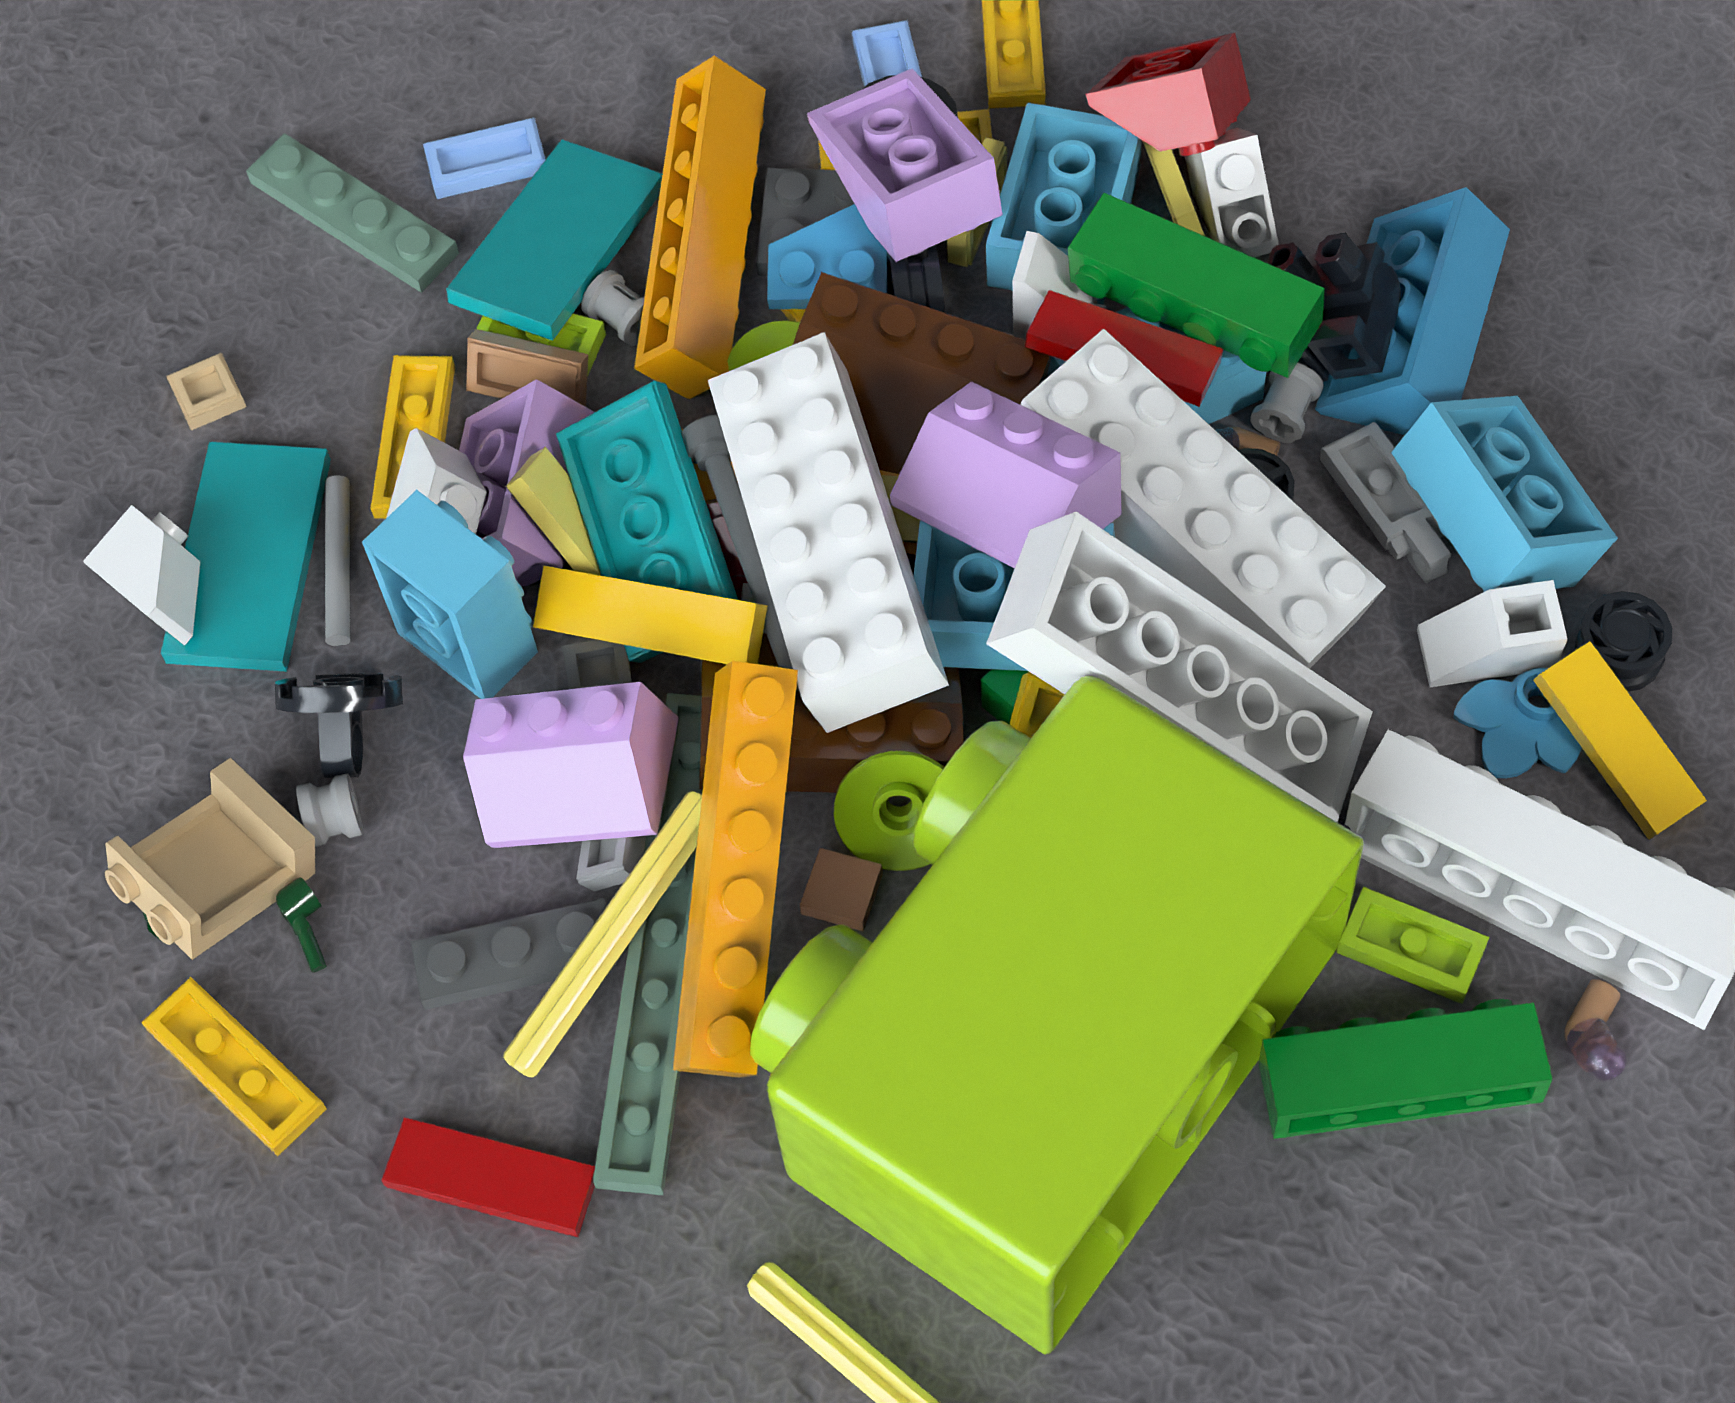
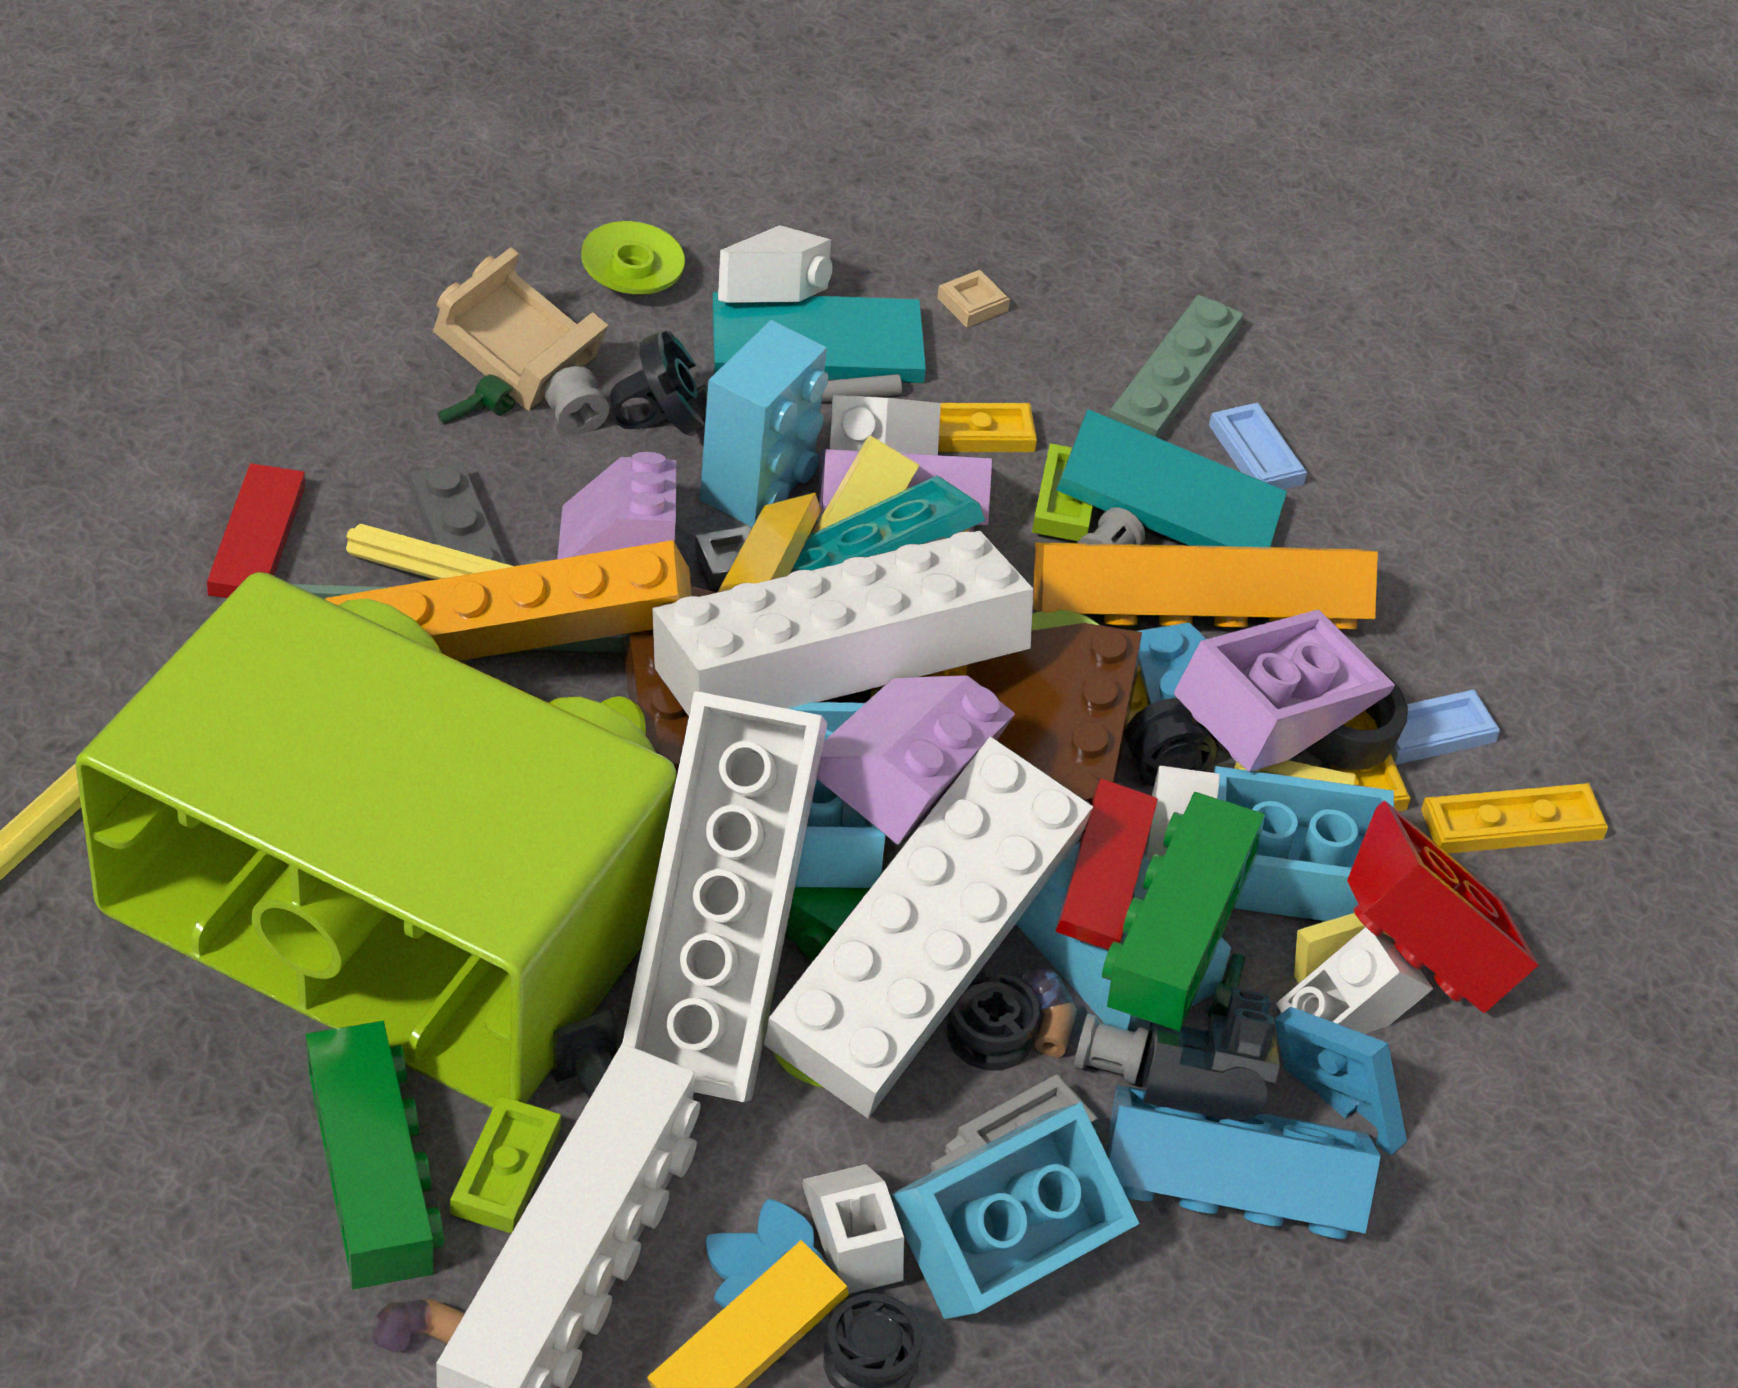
camera: 70 degrees right, 15 degrees down
(81, 713) = (632, 257): none -> lime dish
(234, 1066) = (350, 377): yellow tile -> none
(505, 364) = (1025, 484): medium nougat tile -> none
(1338, 198) = (1344, 1070): none -> dark azure wing

